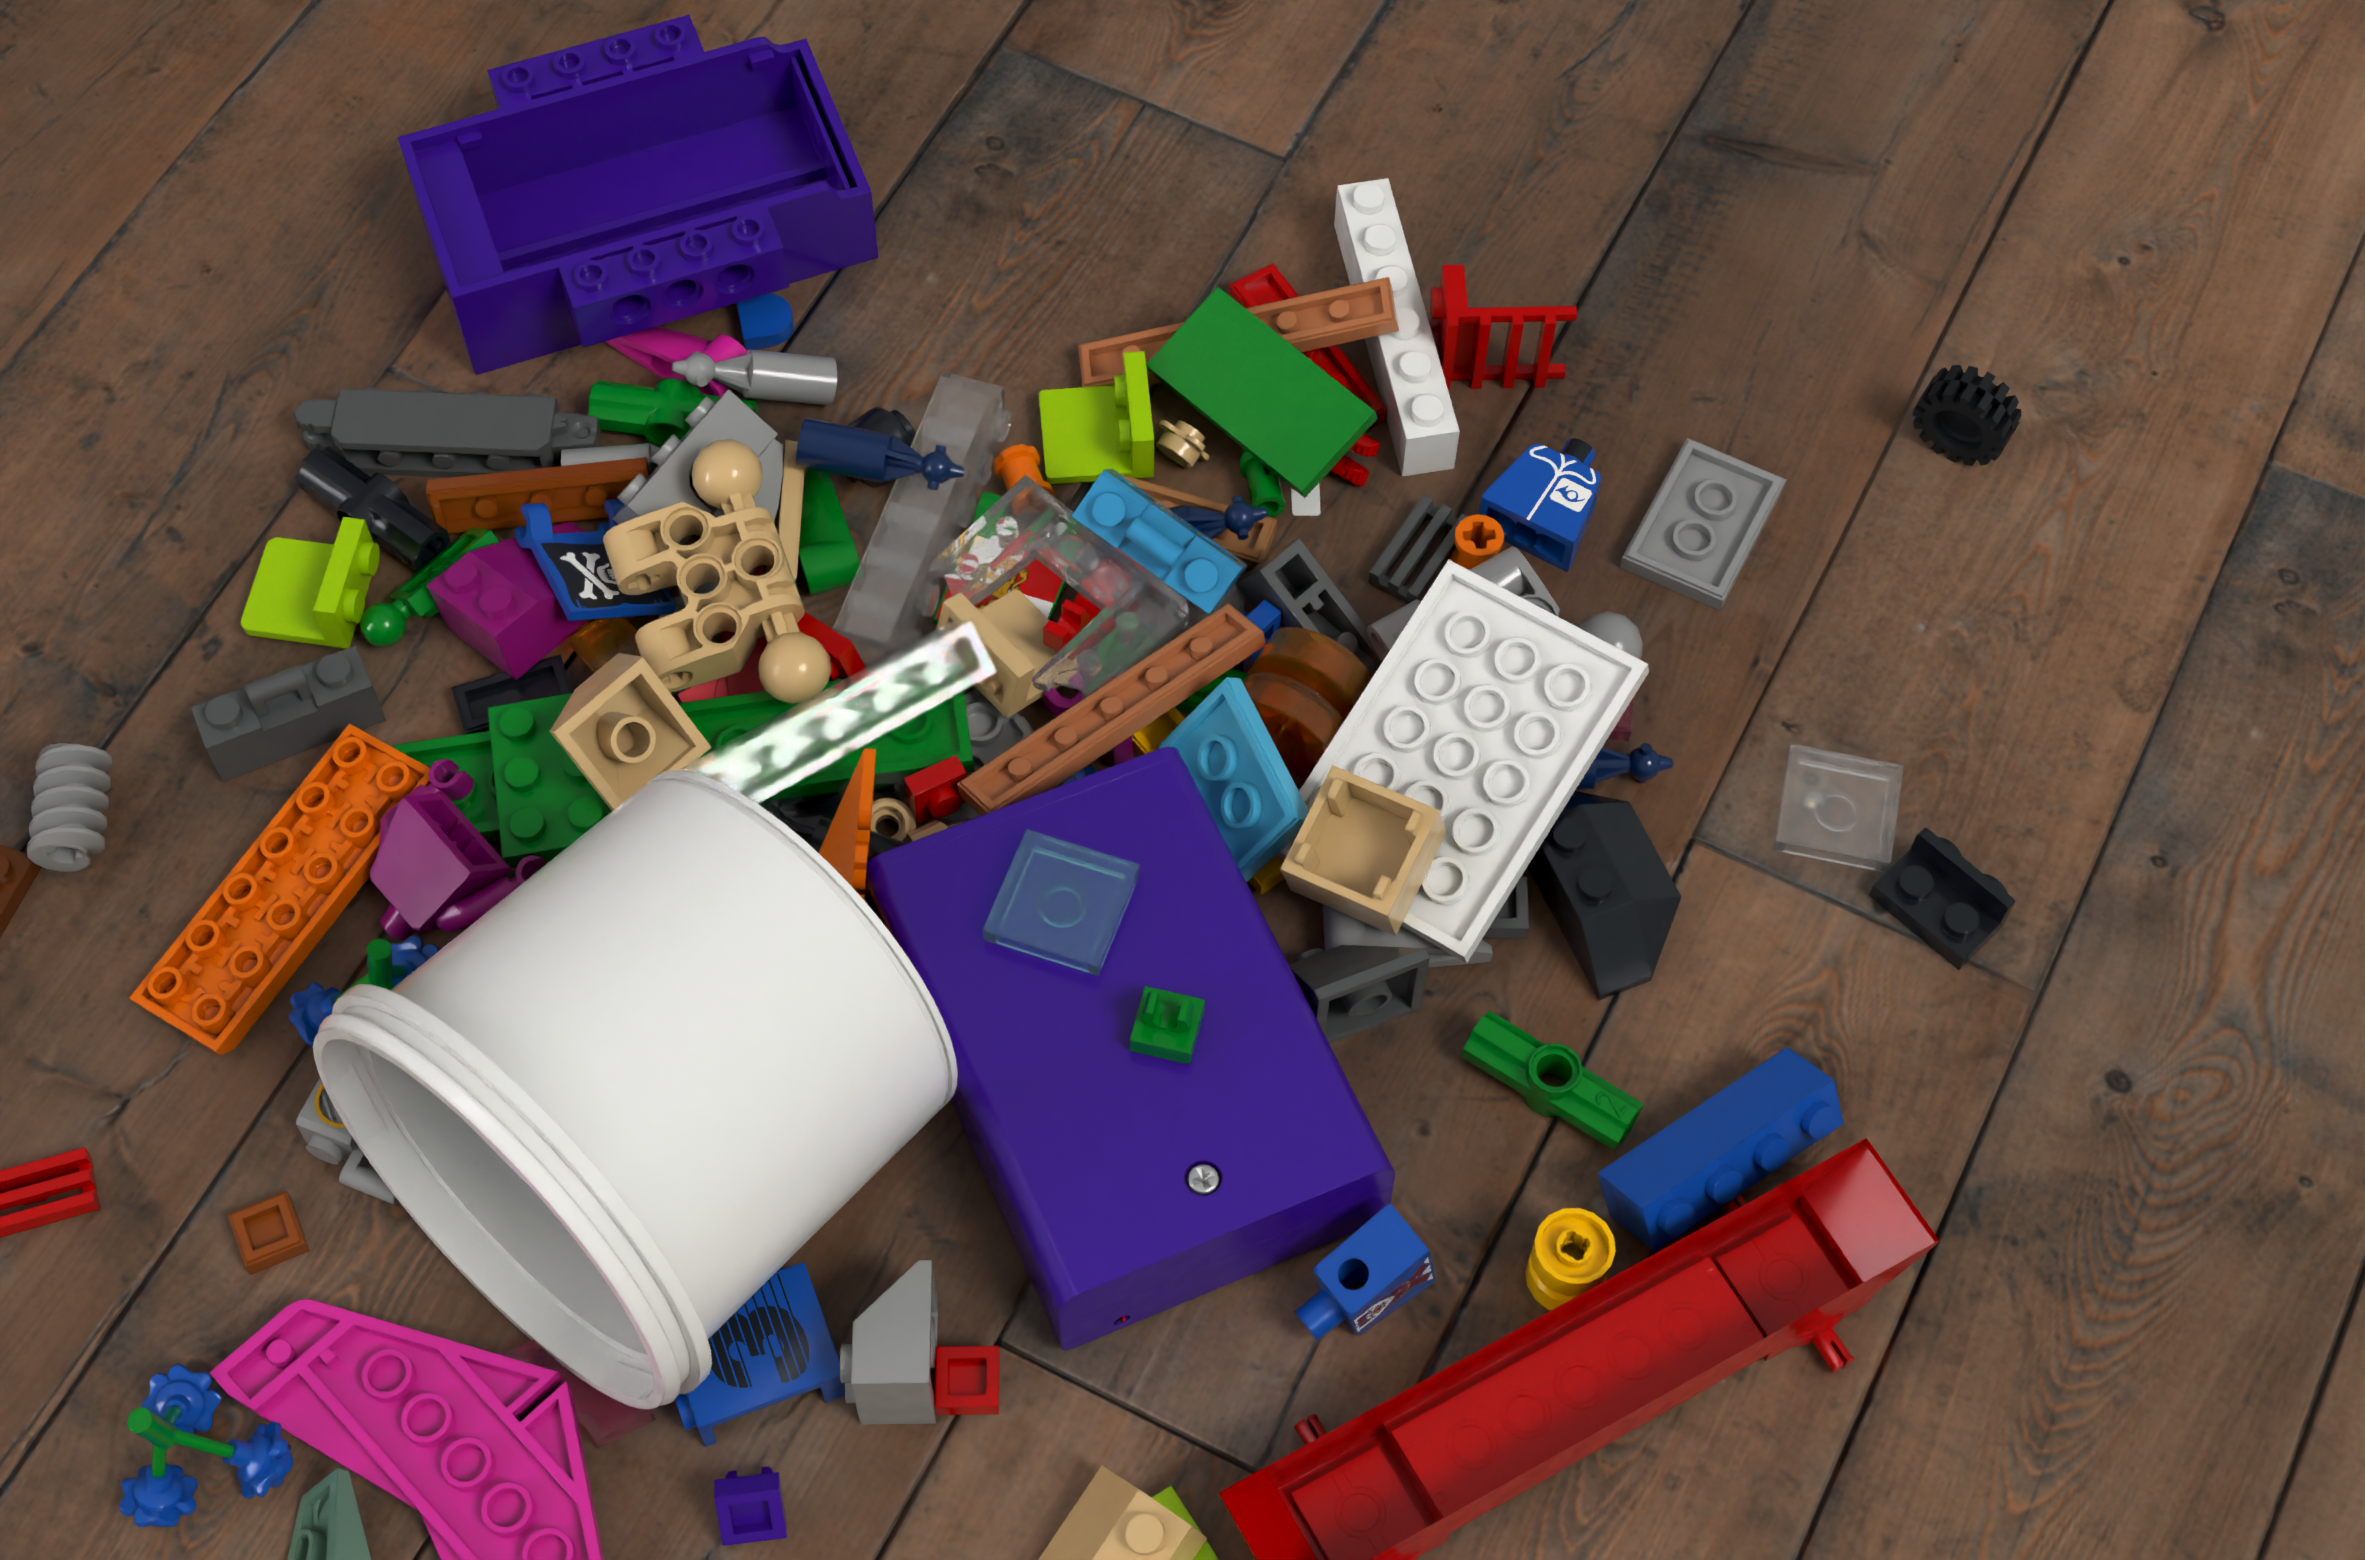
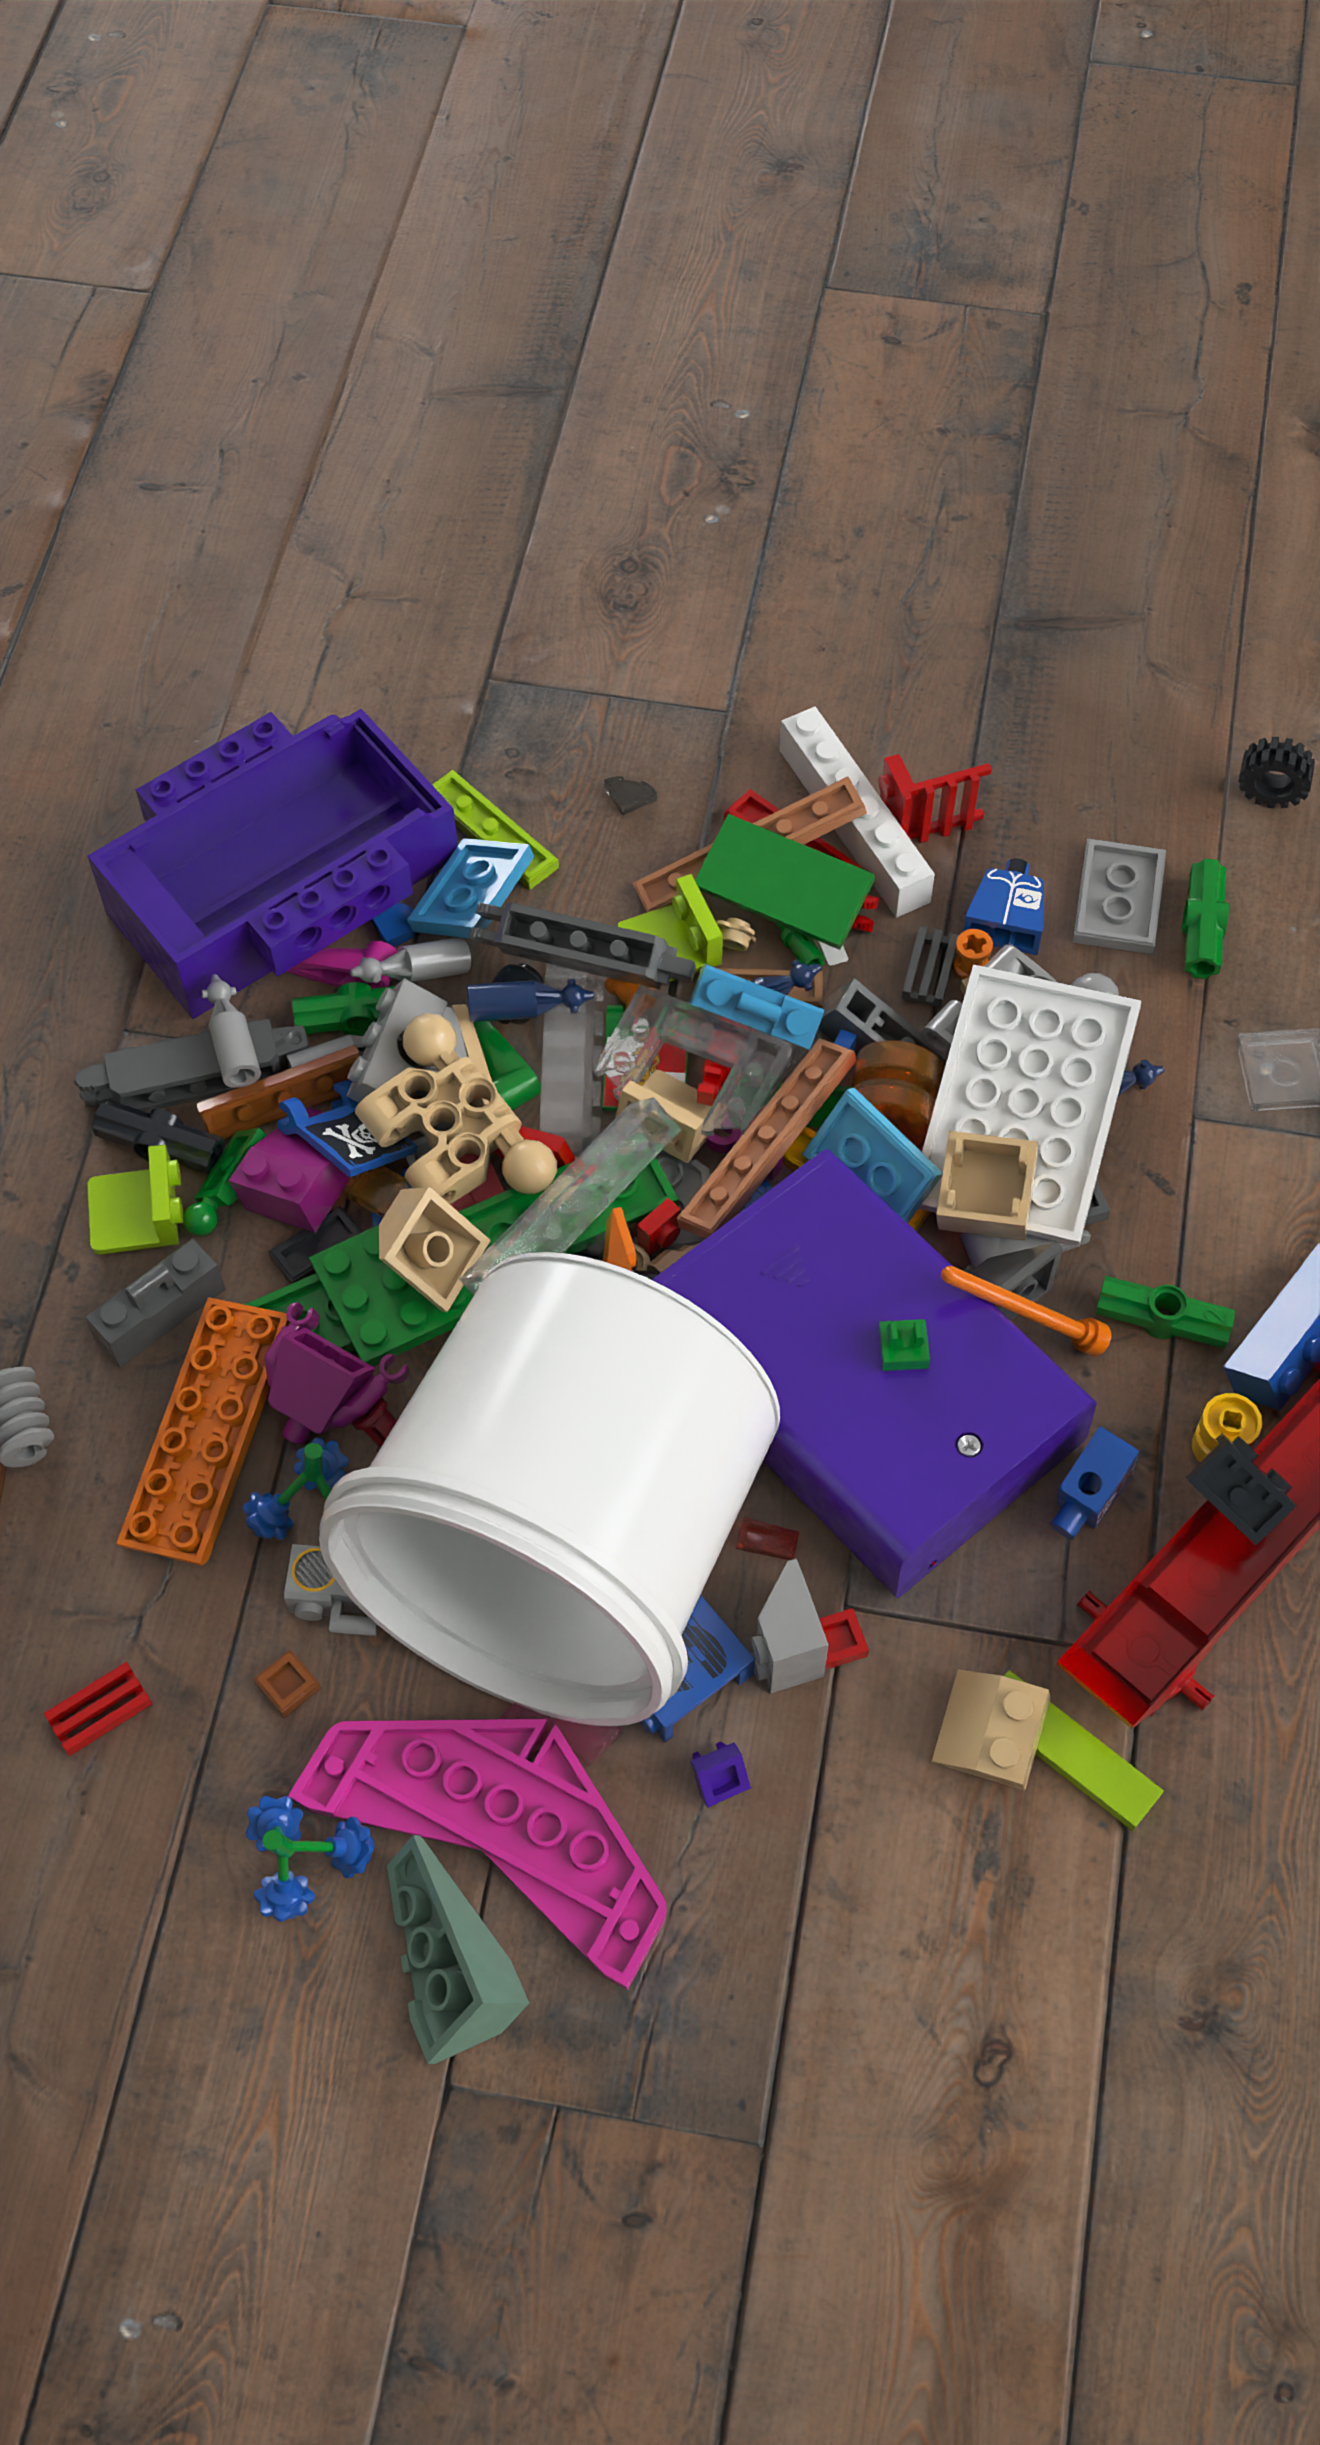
camera: 15 degrees left, 0 degrees up
(495, 407) = (231, 1037): none -> light grey wheel
(869, 300) = (473, 875): none -> dark azure plate
(929, 233) = (484, 821): none -> lime tile
(930, 1226) = (767, 1539): none -> clear red piece
(969, 407) = (583, 945): none -> dark grey hinge
(1061, 902) = (795, 1279): clear light blue tile -> none
(1120, 232) = (629, 794): none -> clear smoke tile
(1438, 1081) = (1086, 1334): none -> orange piece
(1545, 1338) = (1241, 1489): none -> black bracket
(1606, 891) = (1154, 1172): black wedge -> none
(1802, 582) = (1205, 918): none -> green piece

